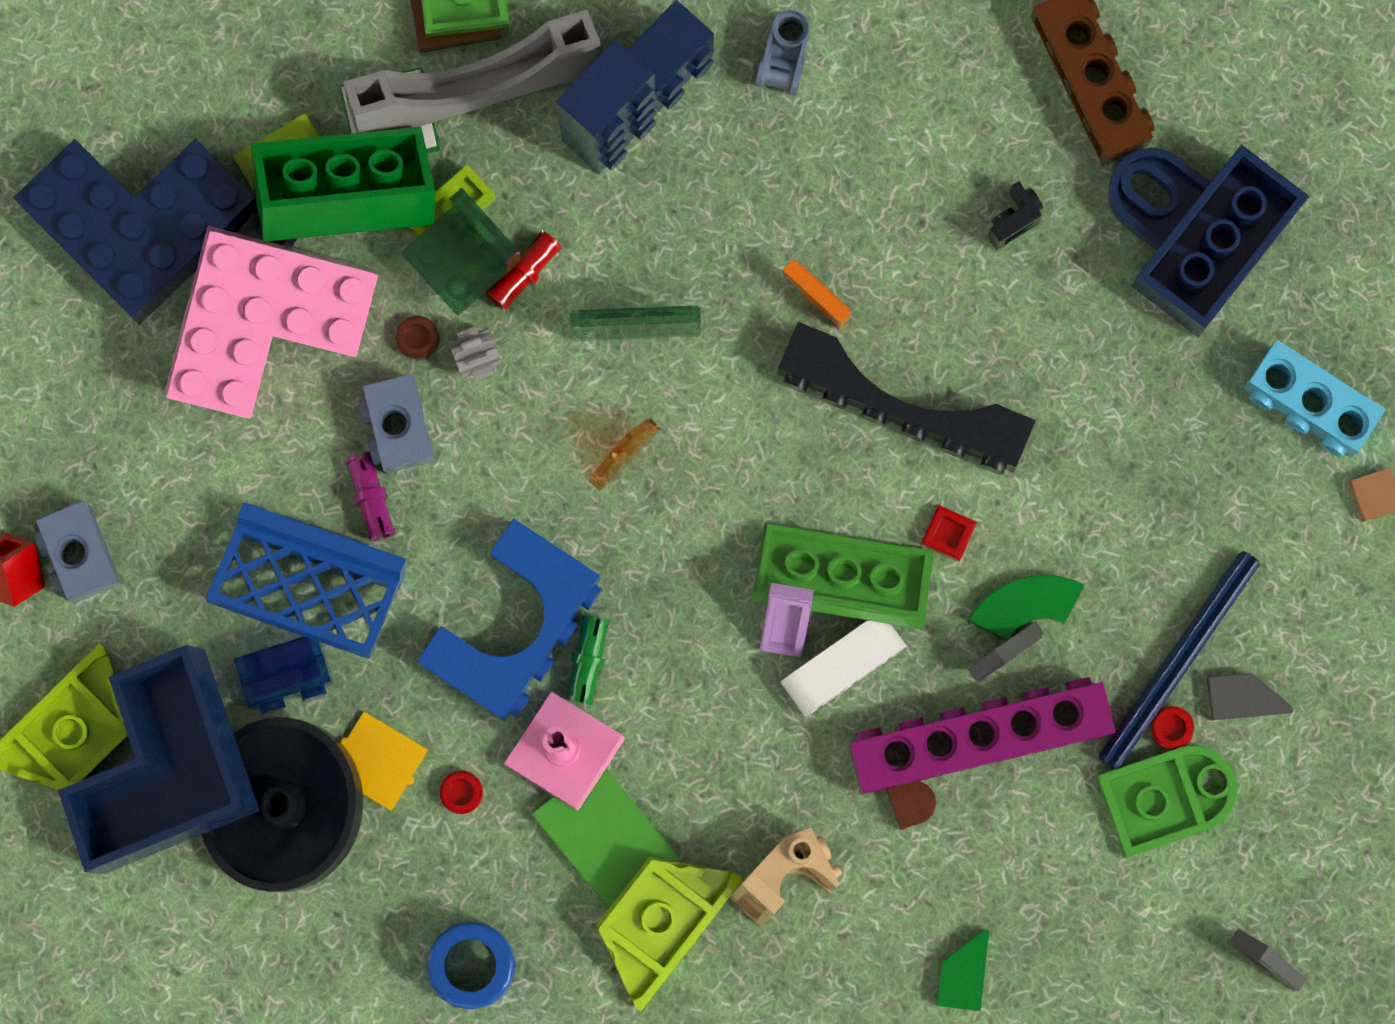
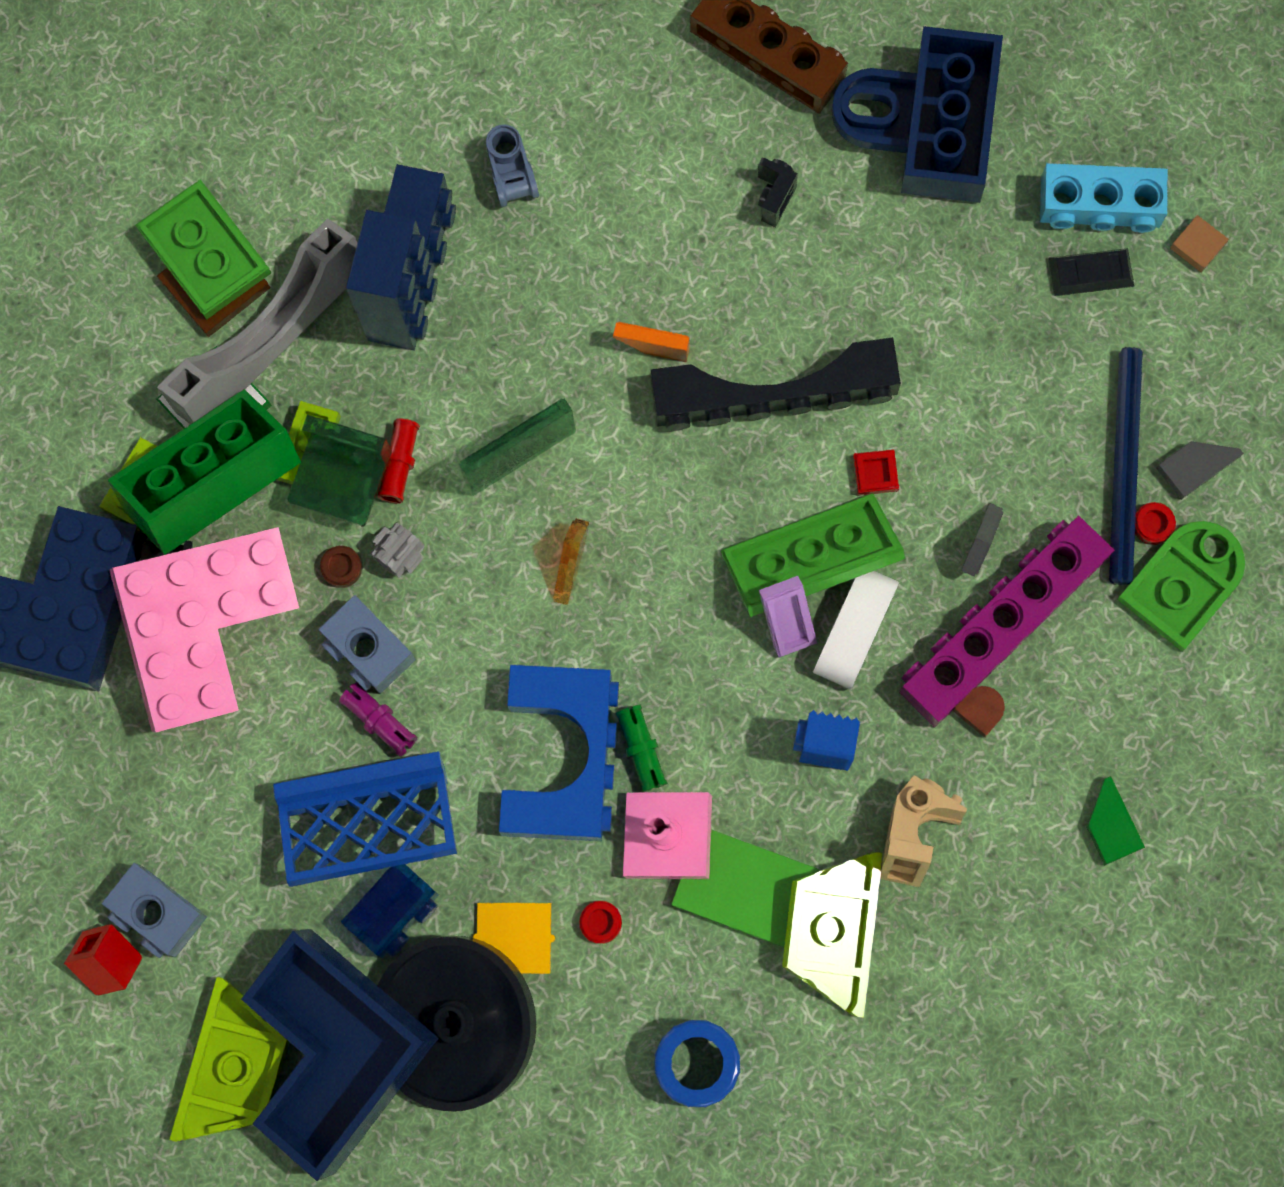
camera: 25 degrees left, 5 degrees down
(752, 751) = (827, 740): none -> blue brick
(1025, 601) = (972, 490): green tile -> none
(1261, 462) = (1091, 272): none -> black tile

